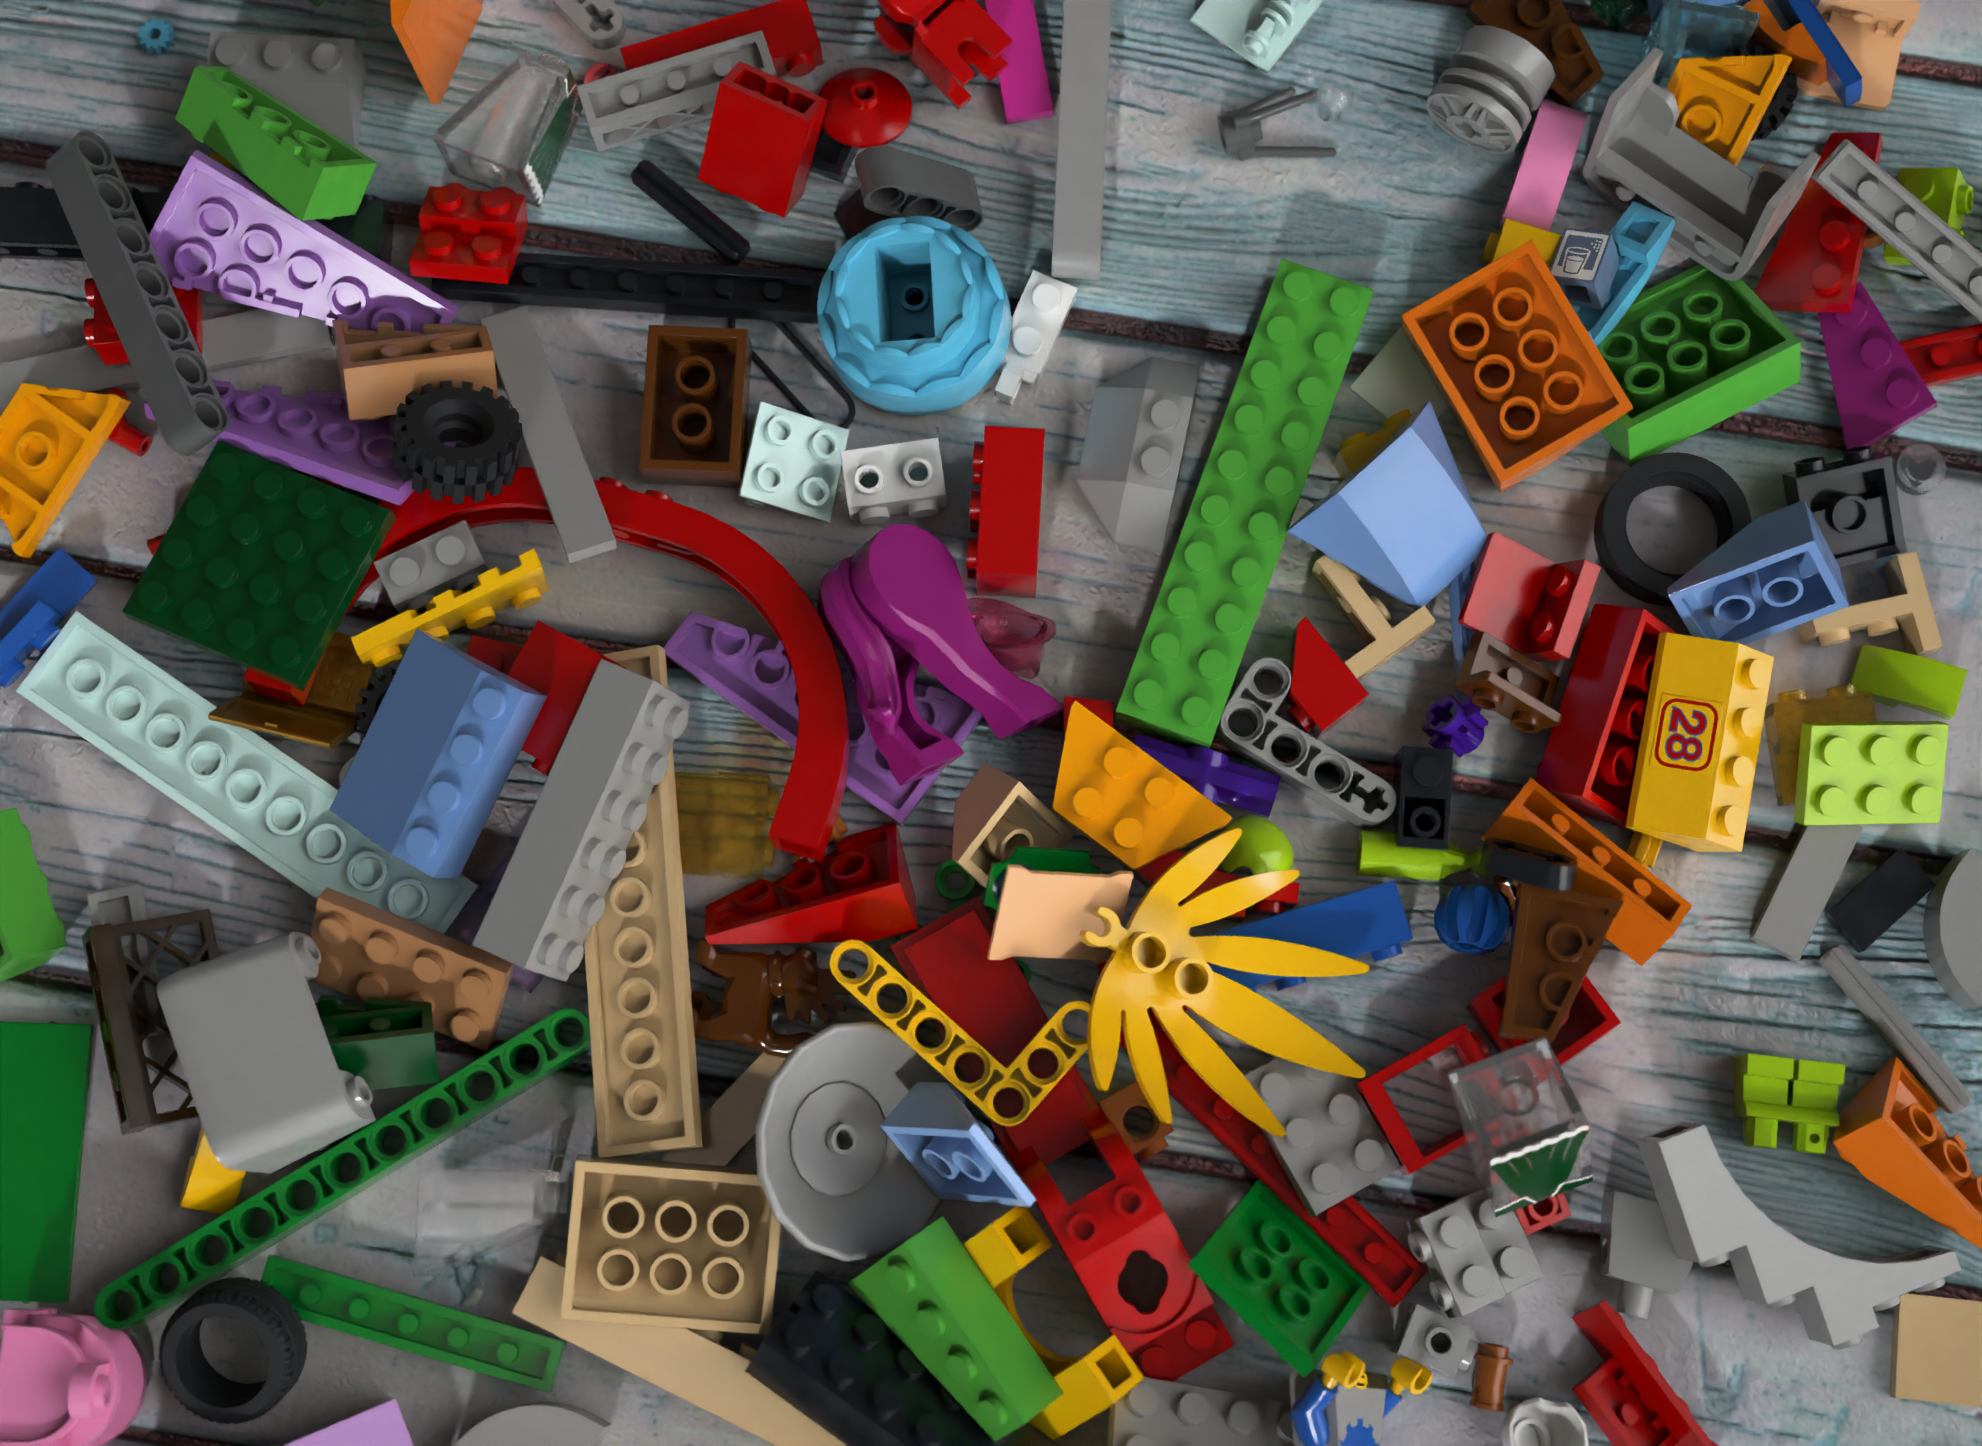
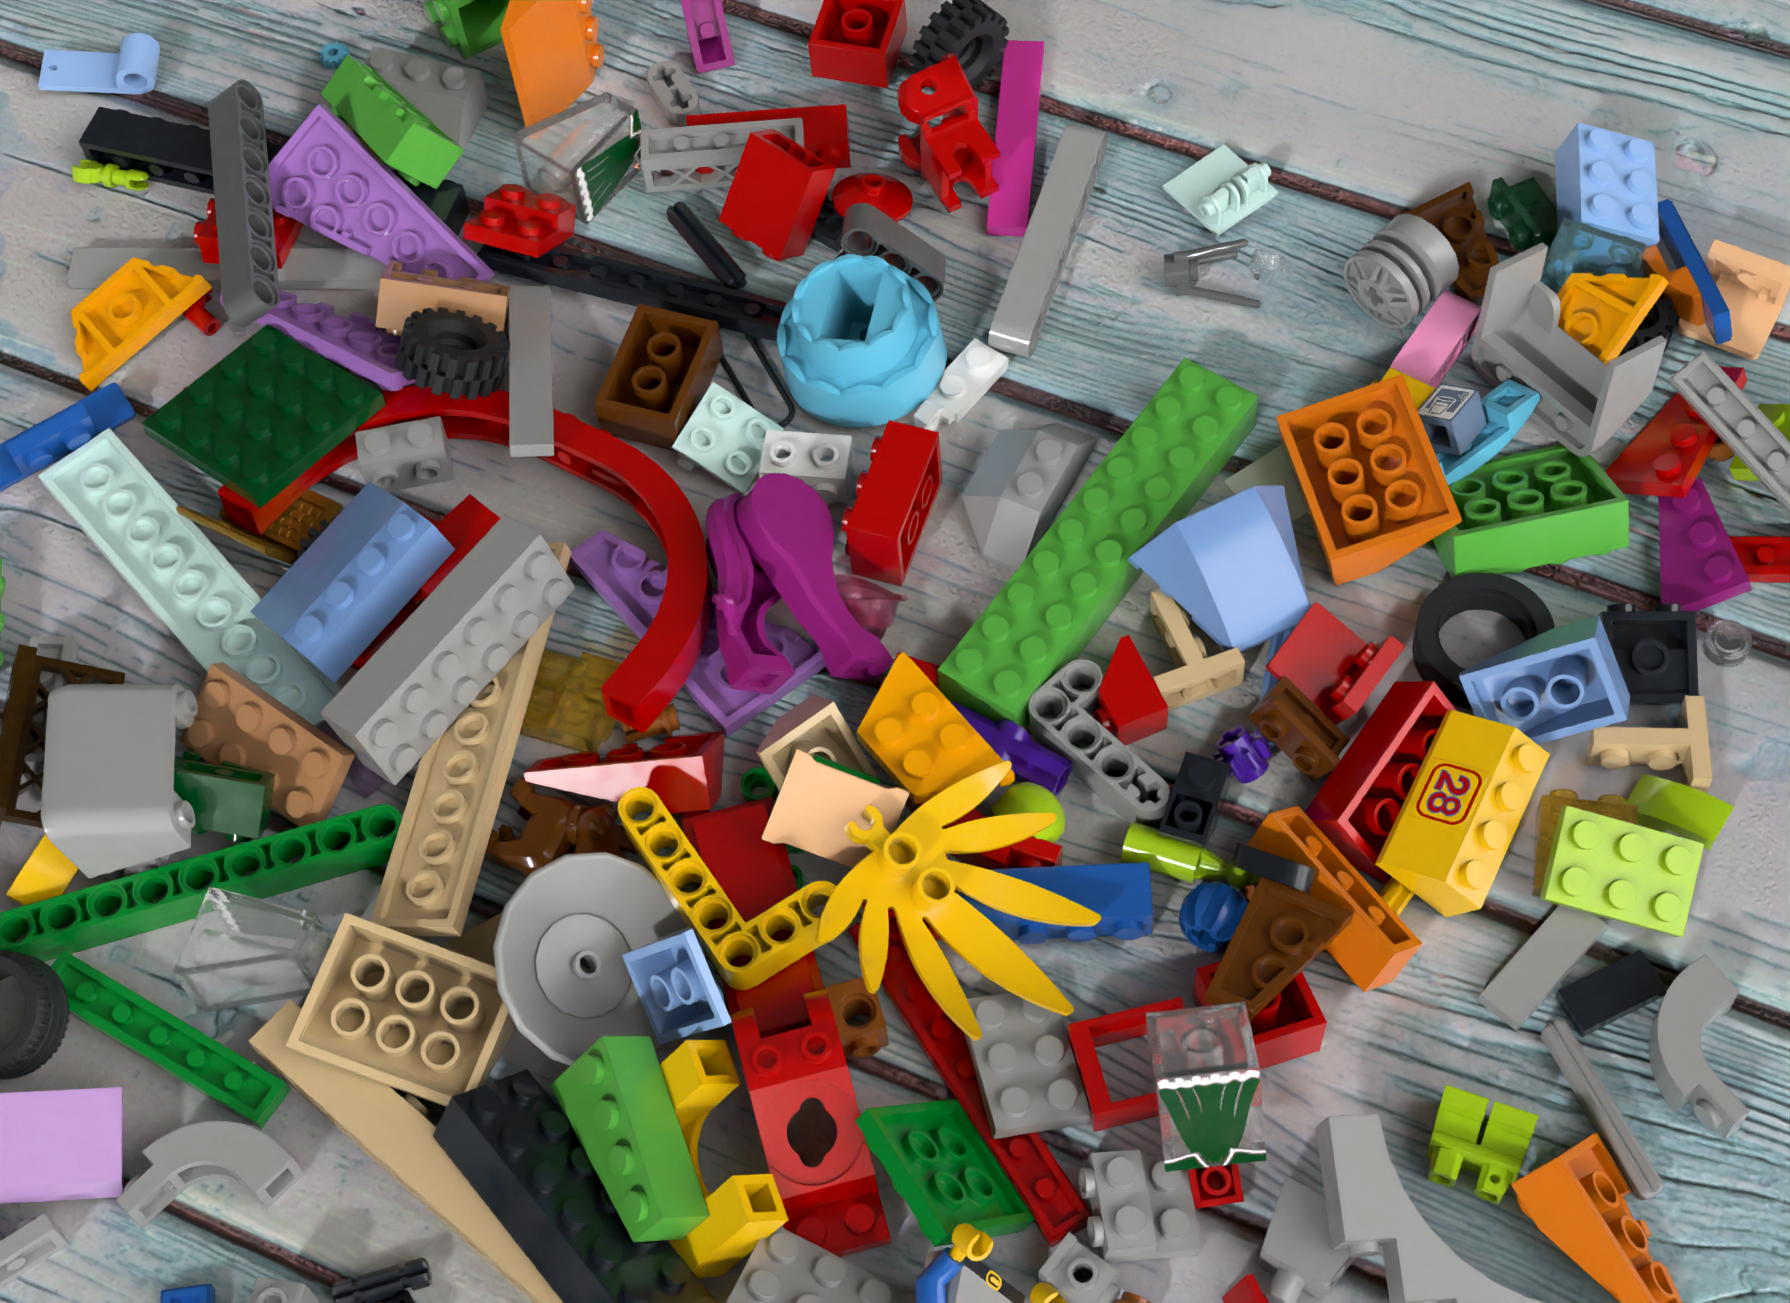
camera: 20 degrees right, 20 degrees down
(455, 609) = (420, 484): yellow wing -> none

